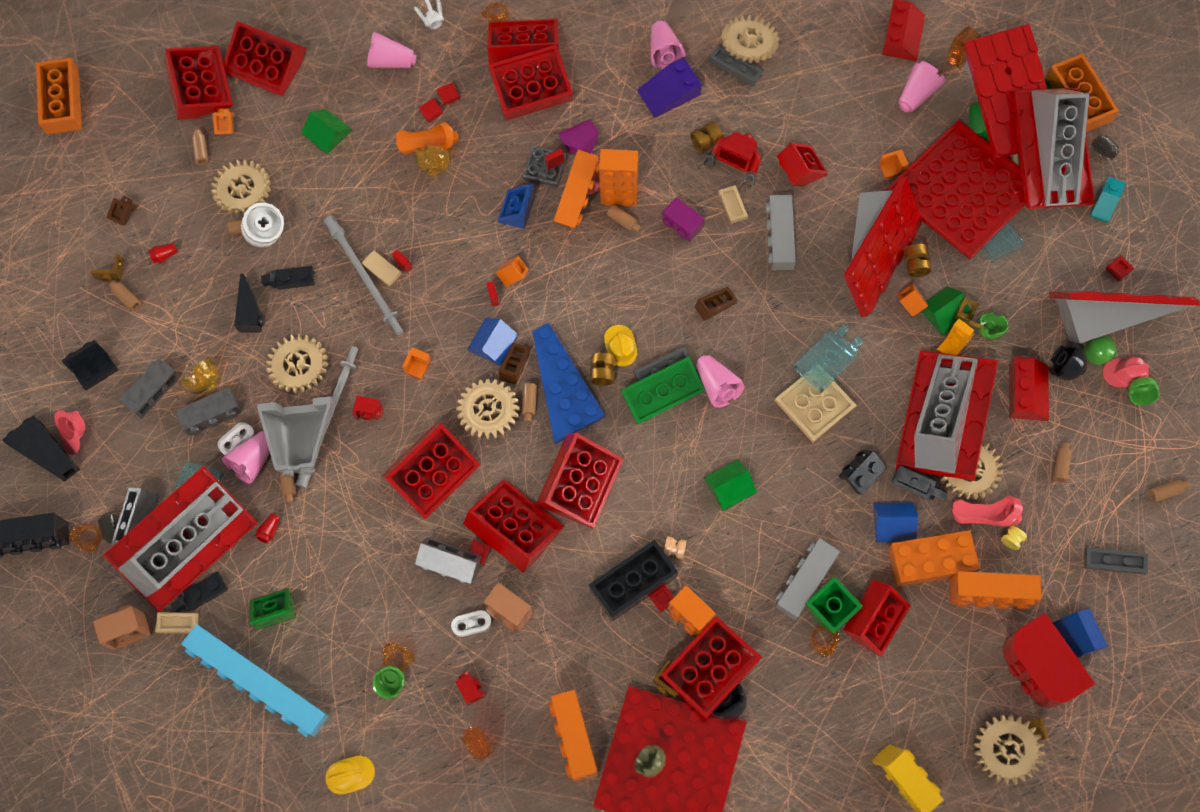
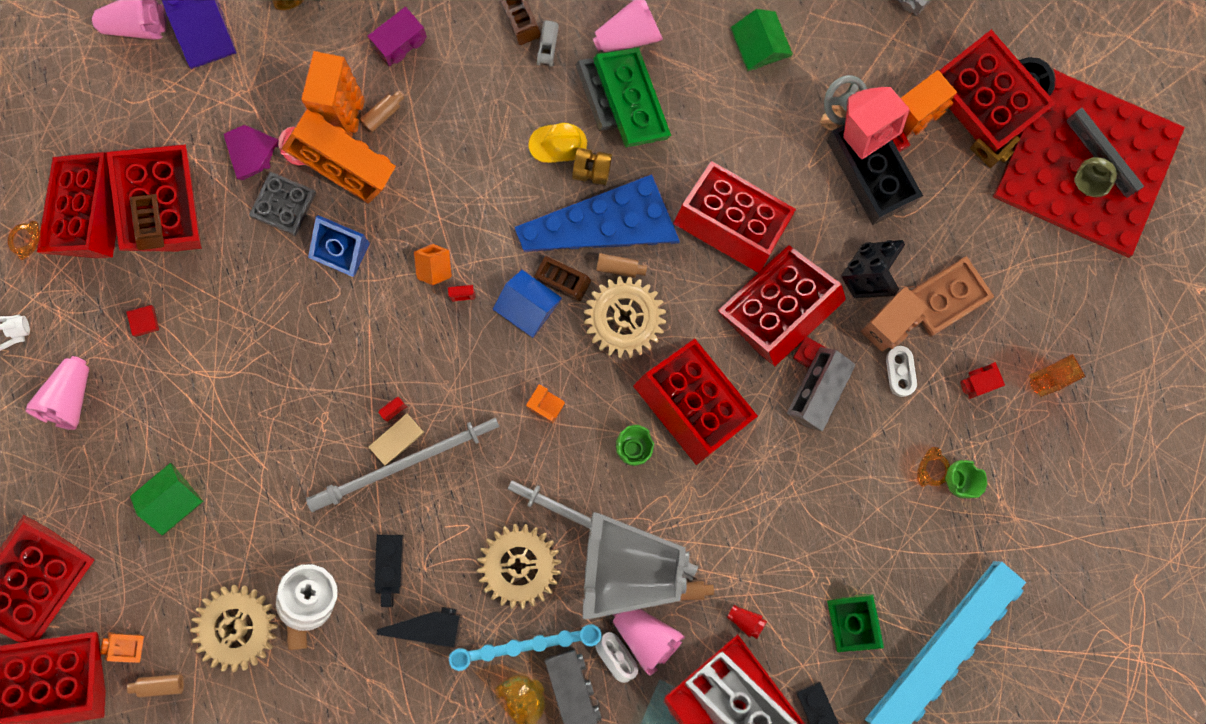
camera: 90 degrees left, 10 degrees up
(246, 413) = (461, 658): none -> medium azure bar
(350, 775) = (1068, 540): yellow piece -> none
(367, 408) = (600, 474): red brick -> none
(391, 429) = (634, 445): none -> bright green hair
(430, 110) = (164, 347): red tile -> none
(433, 159) = (249, 348): clear yellow cylinder -> none
(440, 134) = (213, 337): orange hair -> none
(503, 85) = (149, 237): none -> reddish brown slope
(538, 657) = (951, 295): none -> nougat tile
(547, 581) = (869, 271): none -> black bracket
(554, 159) = (280, 183): red tile -> none
(574, 736) = (1057, 261): orange brick -> none
(663, 558) = (872, 114): none -> coral piece
(673, 767) = (1102, 148): none -> dark grey tile
(701, 325) = (547, 42): none -> light grey bar

